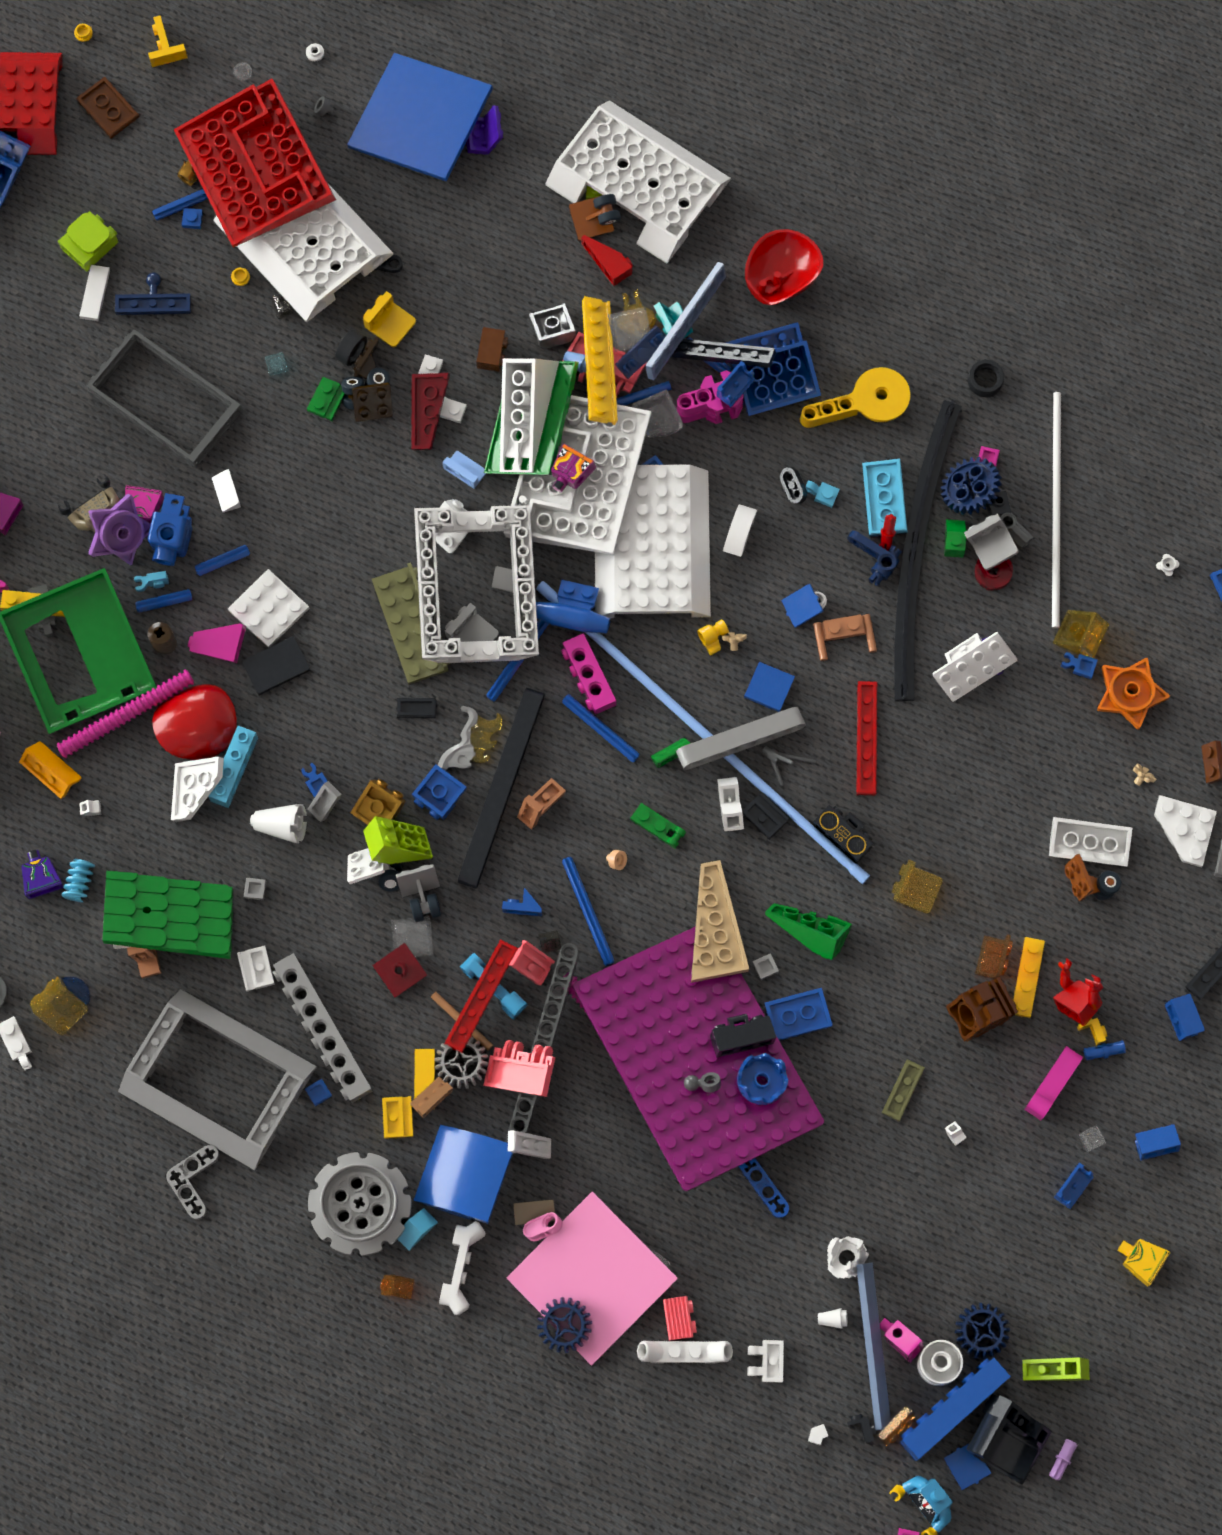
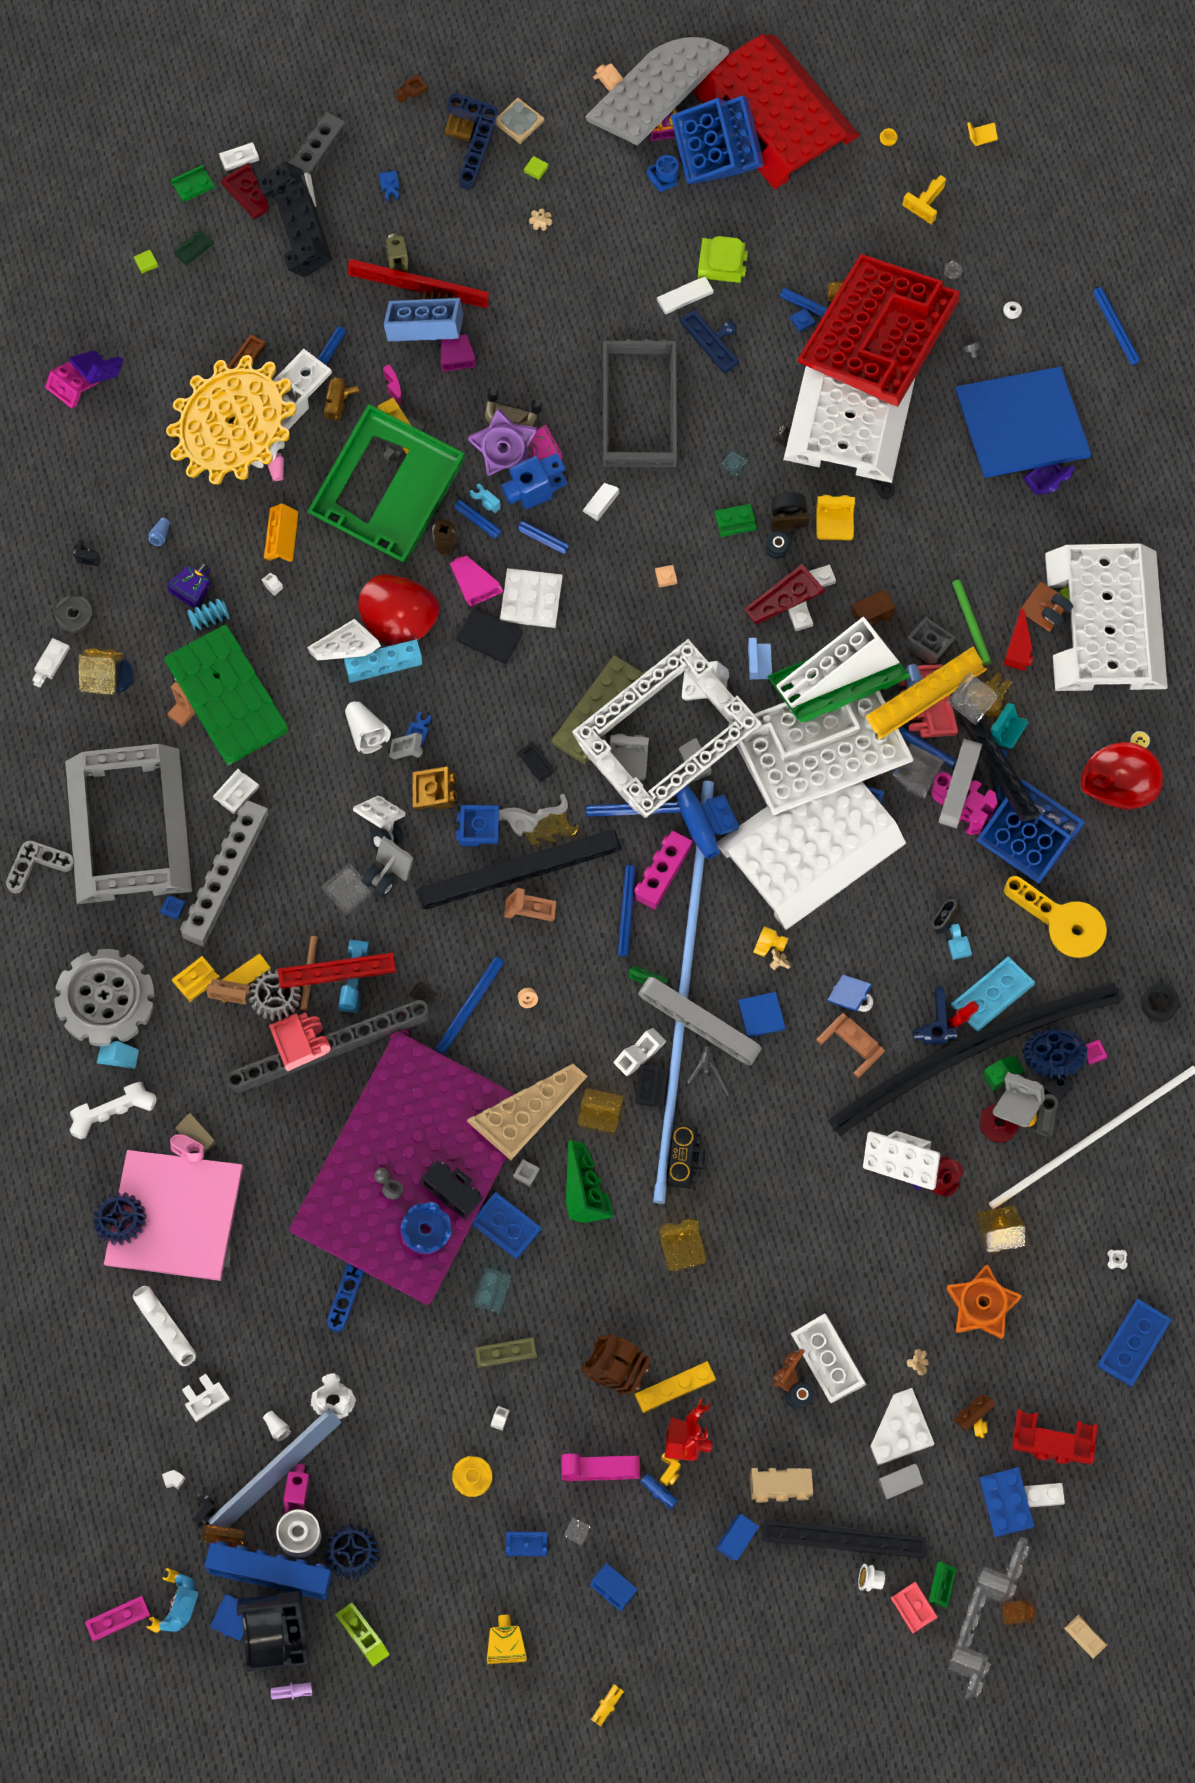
camera: 50 degrees right, 5 degrees down
(107, 107) = (842, 197): reddish brown tile -> none
(125, 713) = (364, 554): dark pink piece -> none
(240, 276) = (783, 387): yellow plate -> none
(254, 889) = (298, 746): light grey plate -> none
(333, 488) = (666, 576): none -> light nougat plate
(367, 401) = (755, 549): dark brown plate -> none
(396, 841) = (413, 820): lime slope -> none
(397, 1286) = (61, 1073): clear orange bracket -> none
(399, 970) = (314, 897): dark red tile -> none
(464, 1174) = (186, 1059): blue slope -> none
(528, 907) = (437, 956): blue slope -> none
(529, 1144) = (243, 1089): white tile -> none
(531, 963) = (392, 990): coral plate -> none
(558, 282) = (971, 621): none -> bright green piece
(571, 468) = (816, 732): torso -> none
(640, 352) = (959, 720): dark blue plate -> none
(657, 825) = (580, 1009): green plate -> none
(678, 1318) = (189, 1304): coral brick -> none
(682, 370) = (960, 783): none -> light grey beam
(685, 321) = (1014, 734): sand blue tile -> none
(735, 384) = (987, 806): blue hinge -> none
(739, 530) = (873, 899): white brick -> none
(756, 870) = (600, 1110): none -> clear yellow bracket
(757, 230) = (1140, 738): none -> light yellow tile
(843, 1064) = (492, 1290): none -> clear light blue plate
(866, 738) = (778, 1121): red tile -> none
(986, 1190) = (472, 1482): none -> yellow tile
(992, 957) = (670, 1346): clear orange bracket -> none
(1016, 644) = (954, 1172): none -> dark red plate
(1083, 665) = (974, 1249): blue plate -> none
(1167, 952) = (781, 1484): none -> tan wedge

